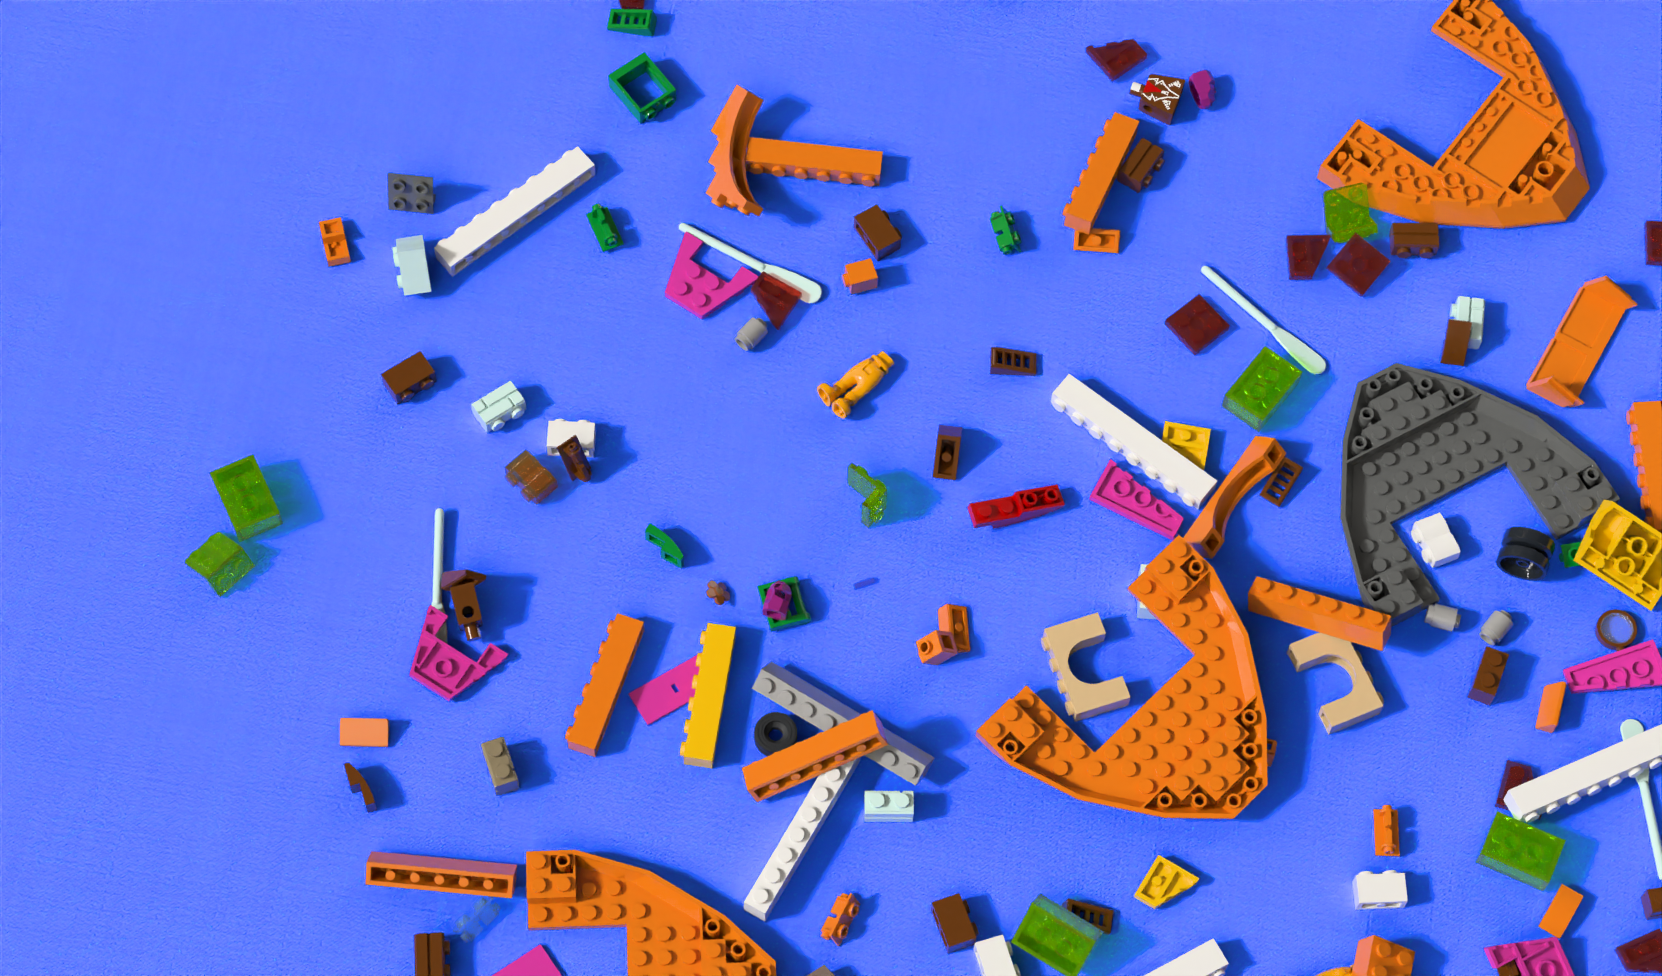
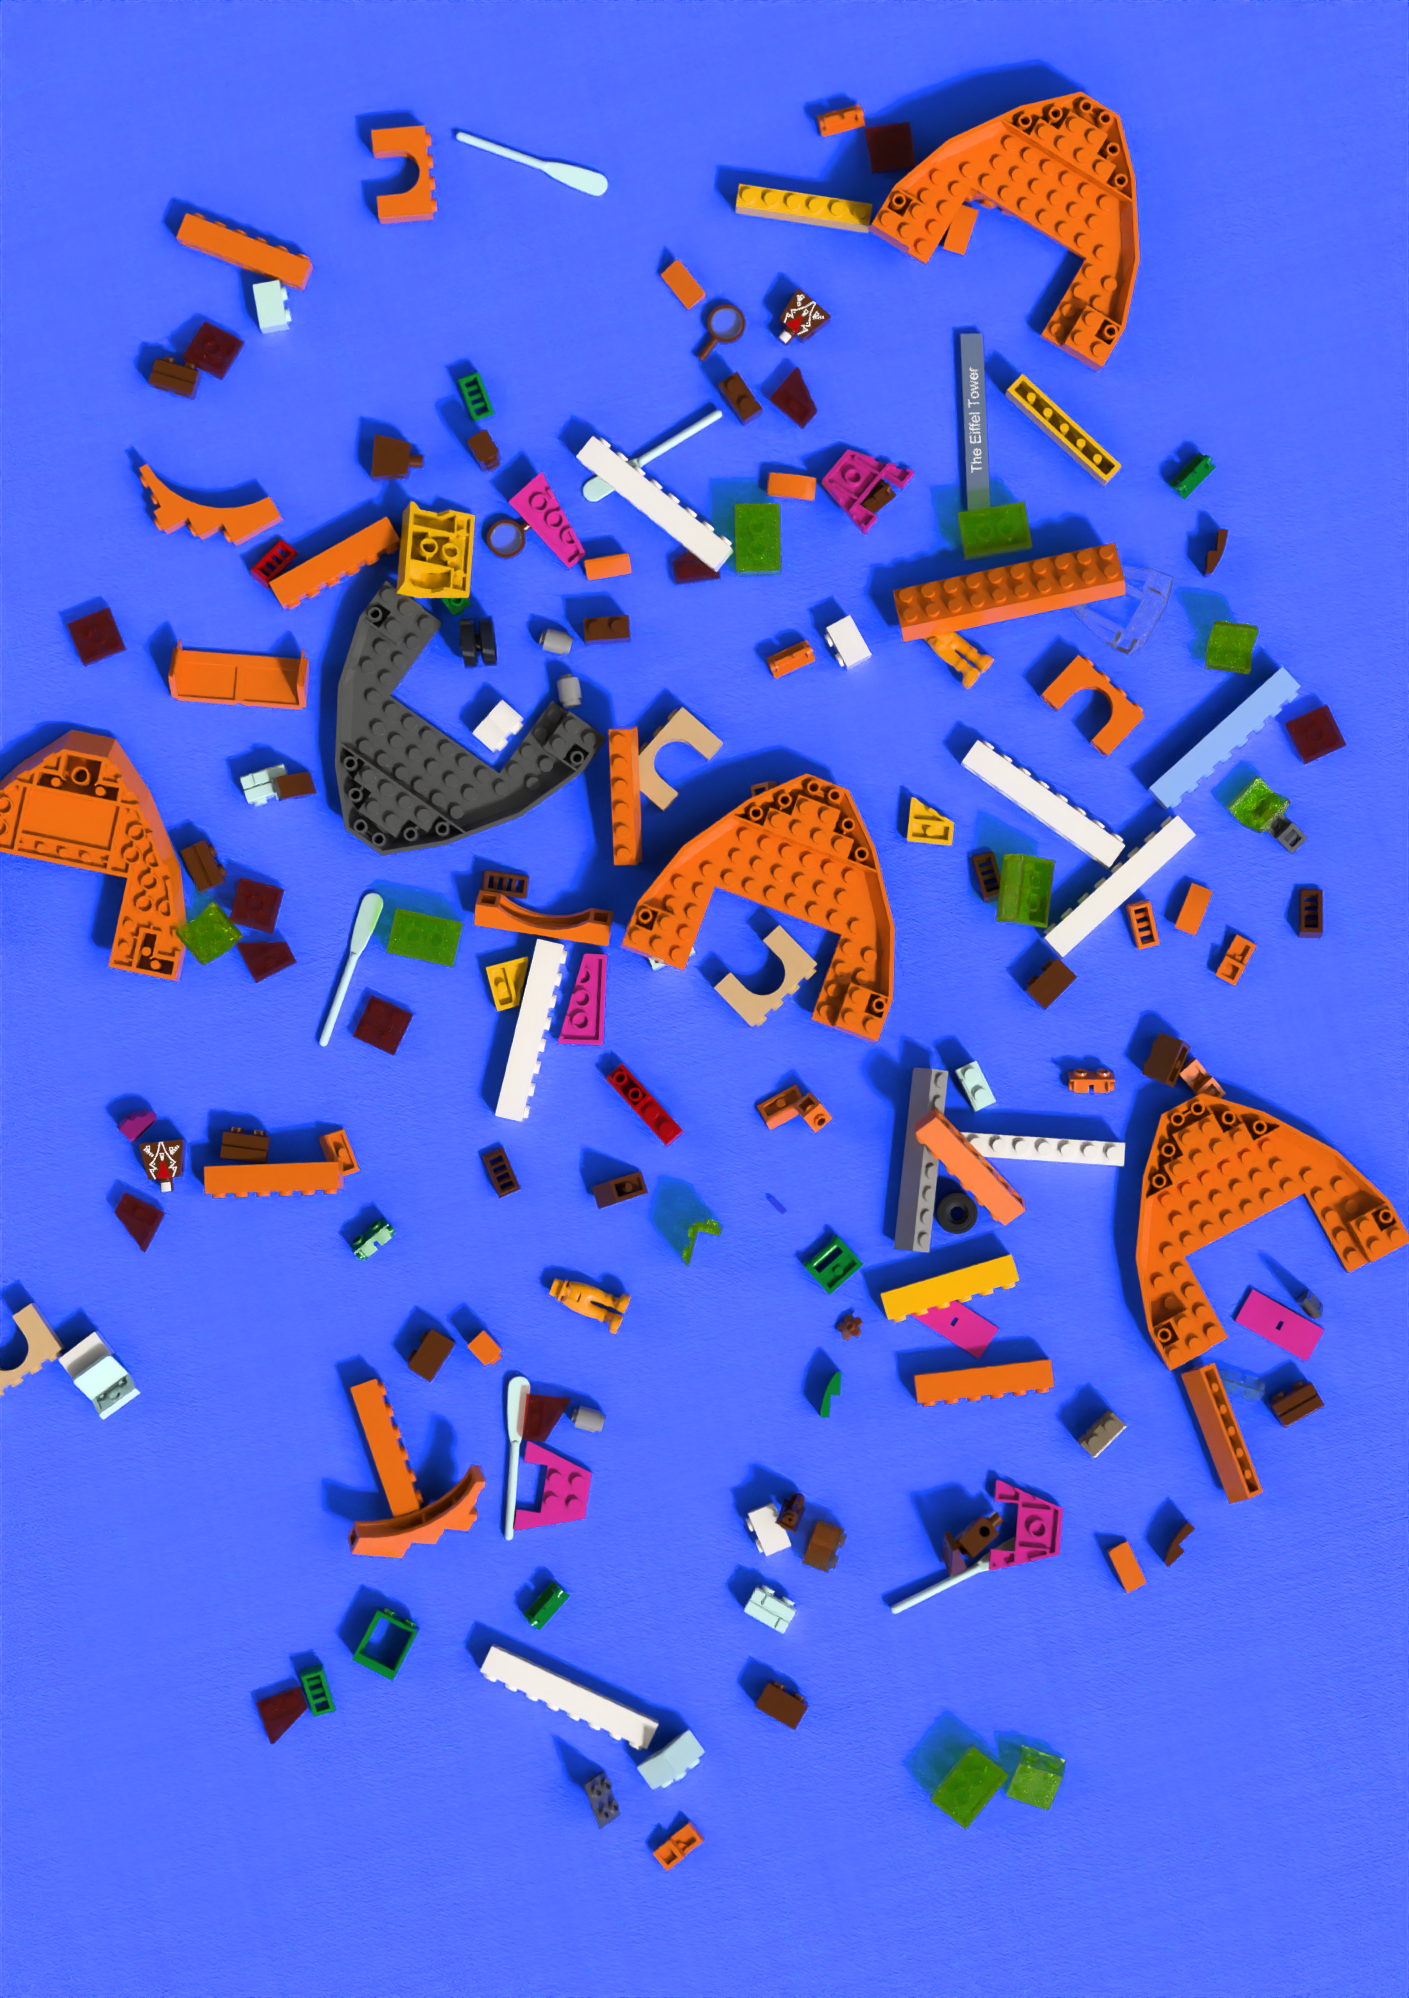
camera: 105 degrees left, 20 degrees up
(777, 601) = (837, 1269): magenta rock -> none

